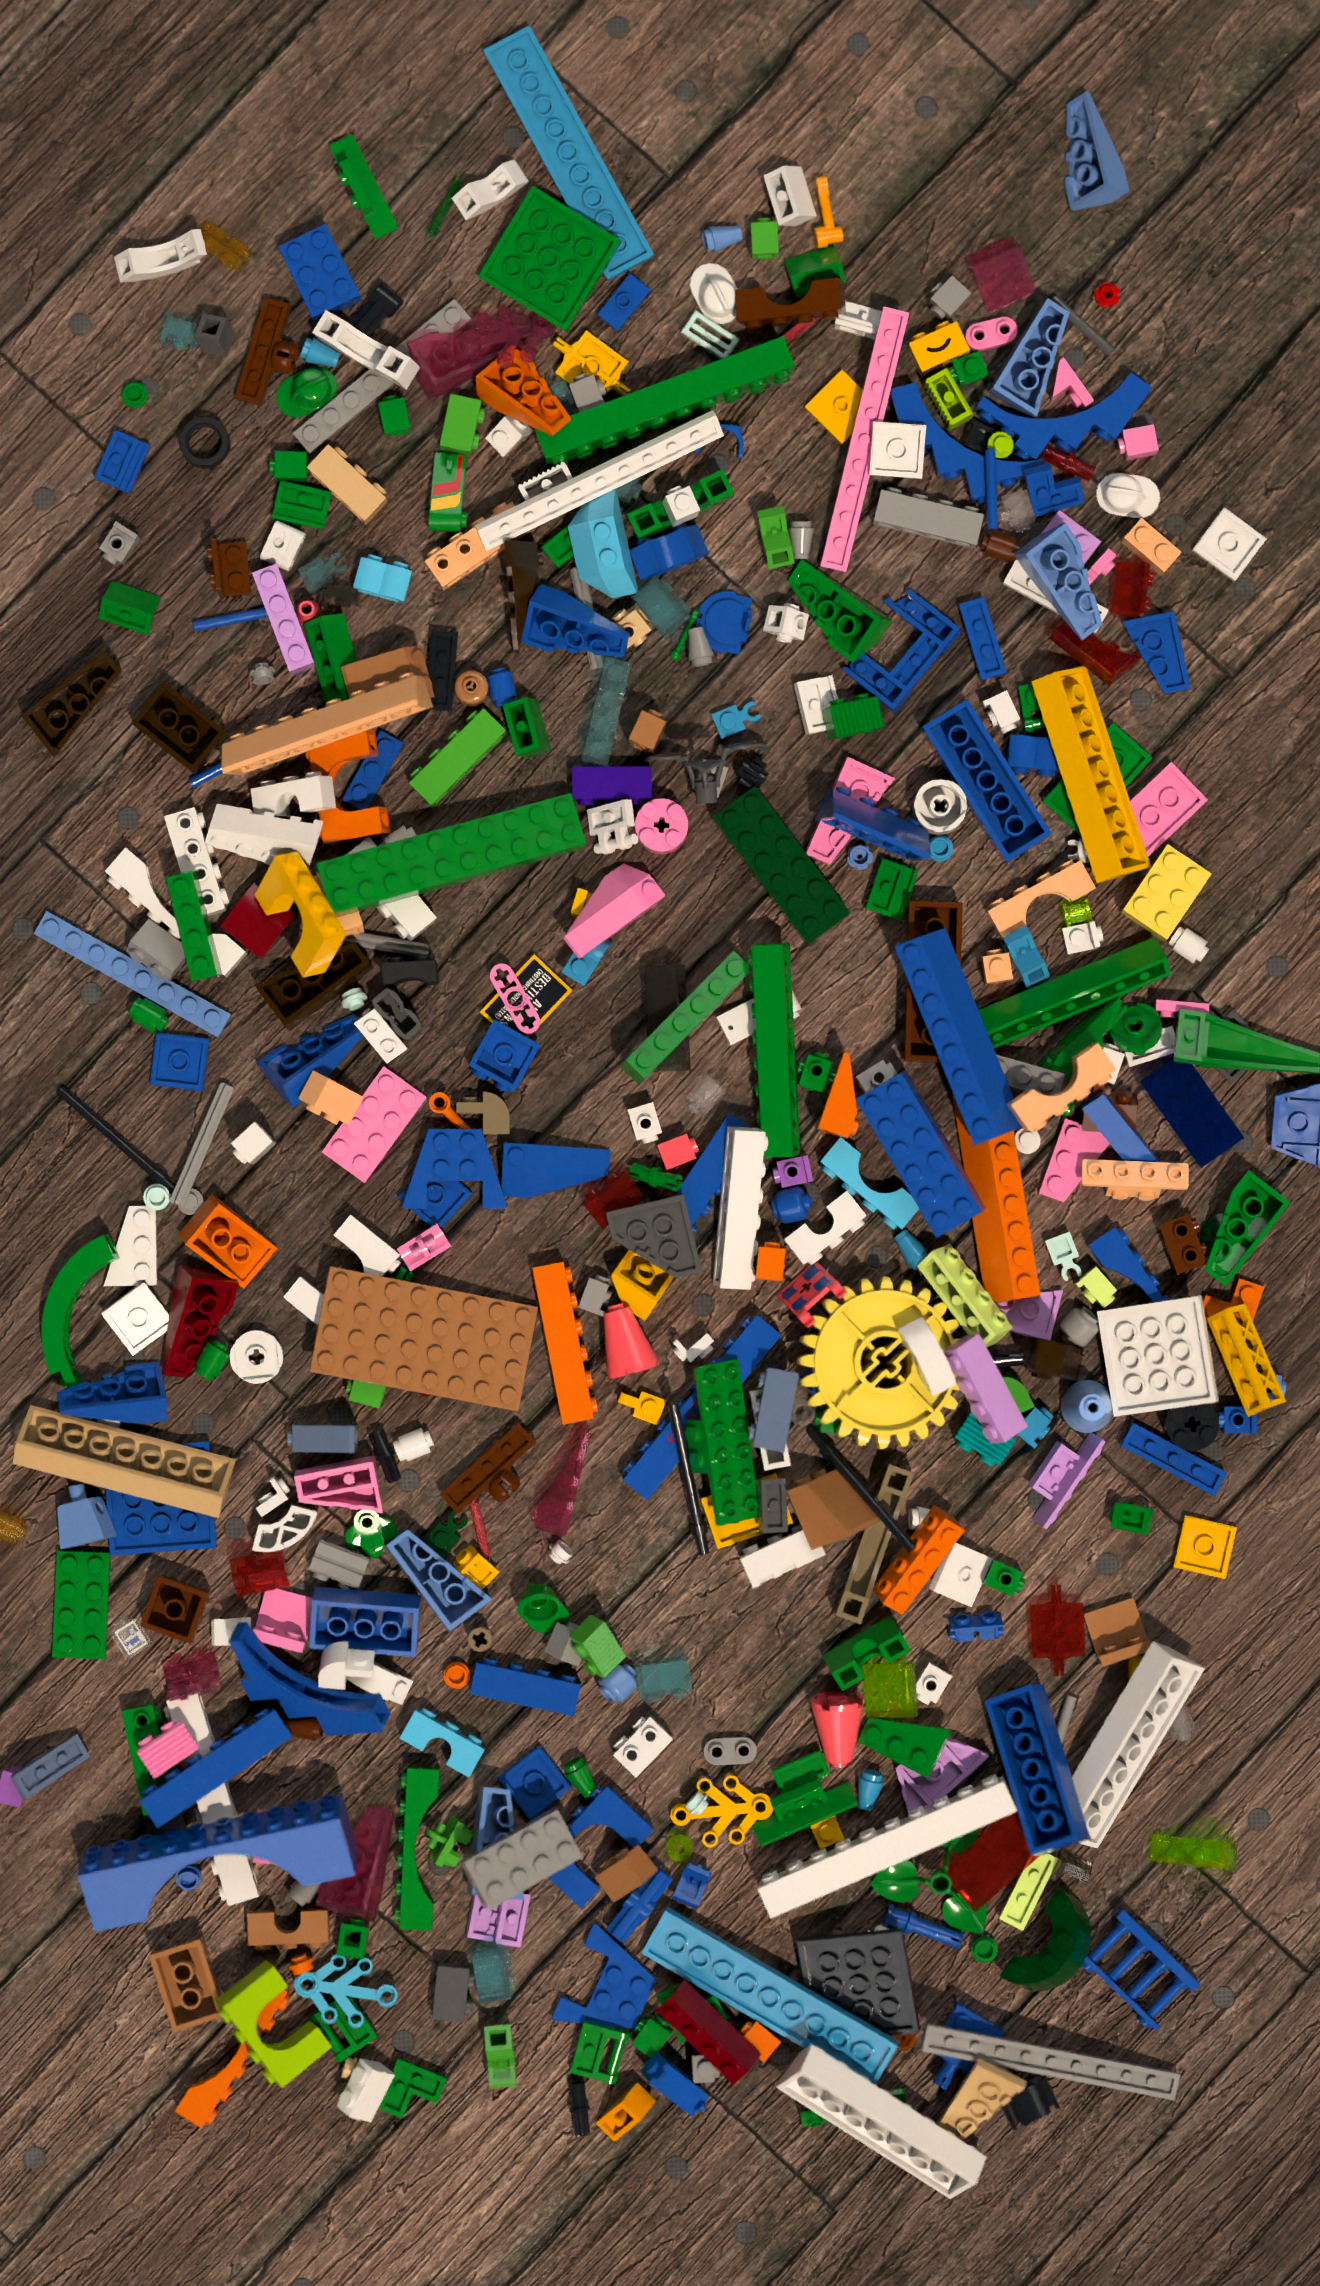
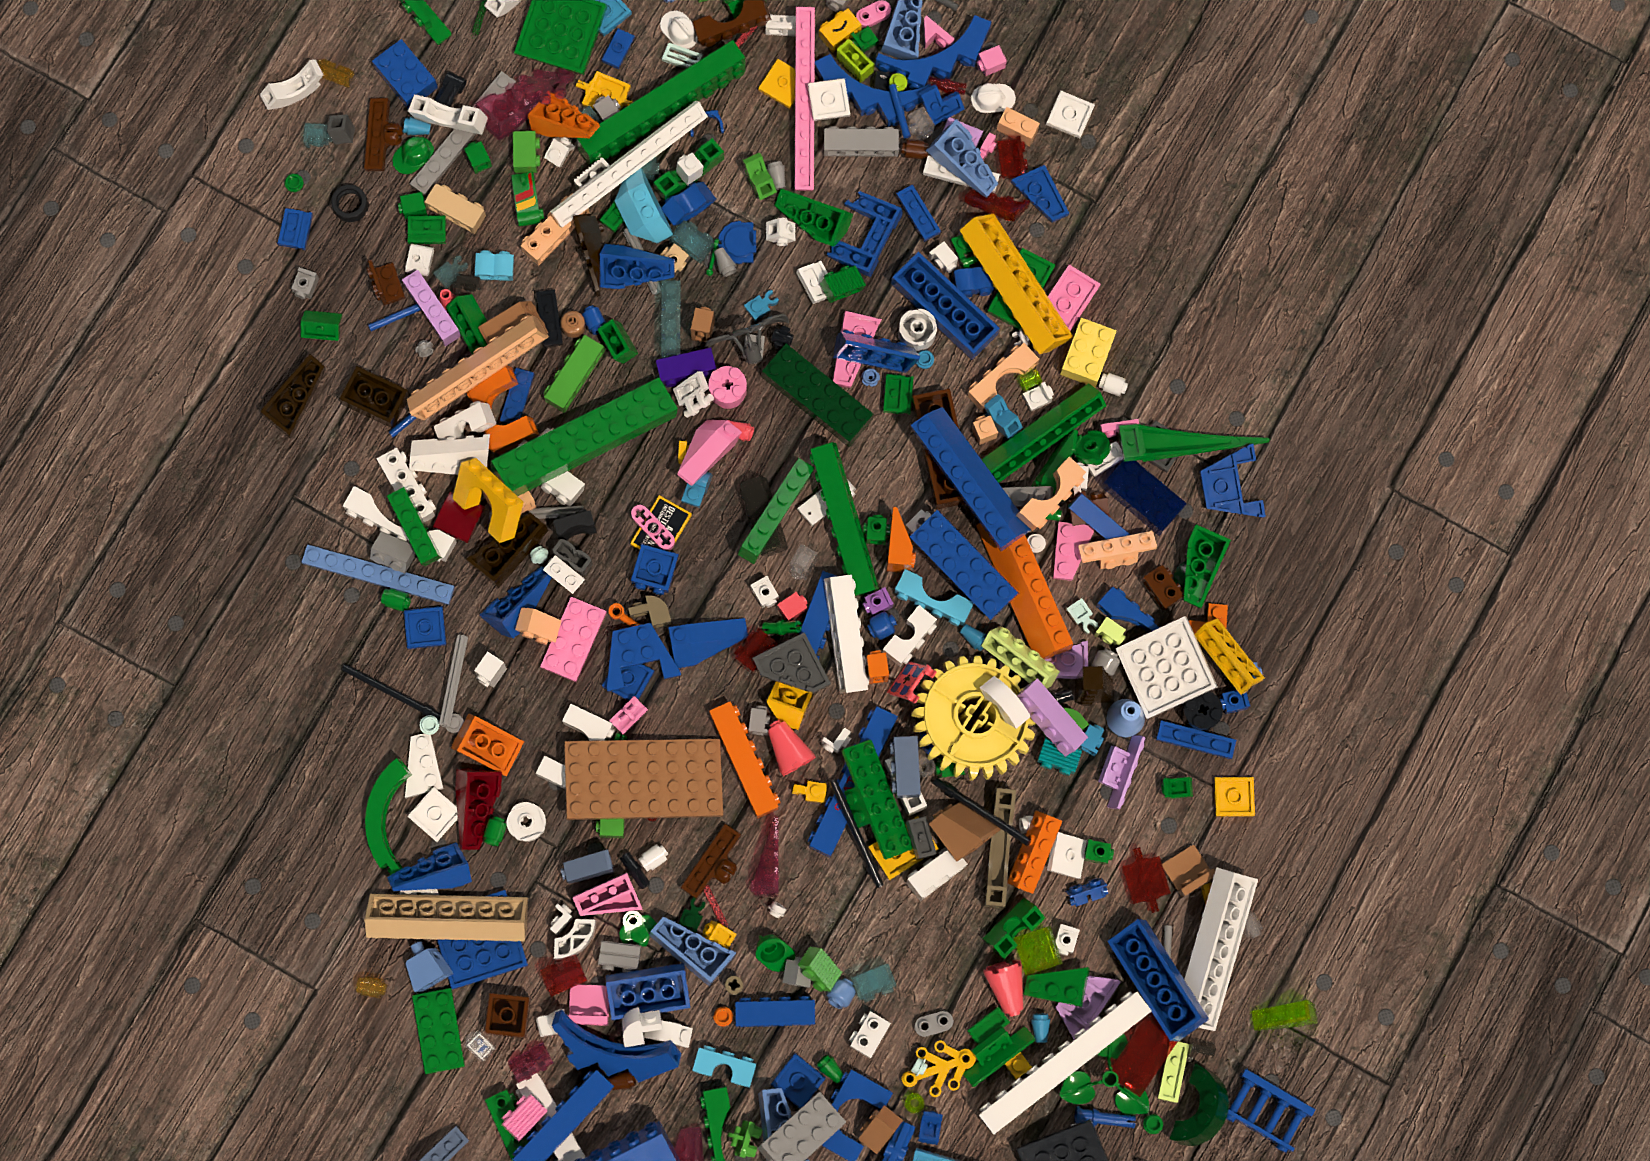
camera: 15 degrees left, 10 degrees down
(670, 889) = (746, 429): none -> coral cone

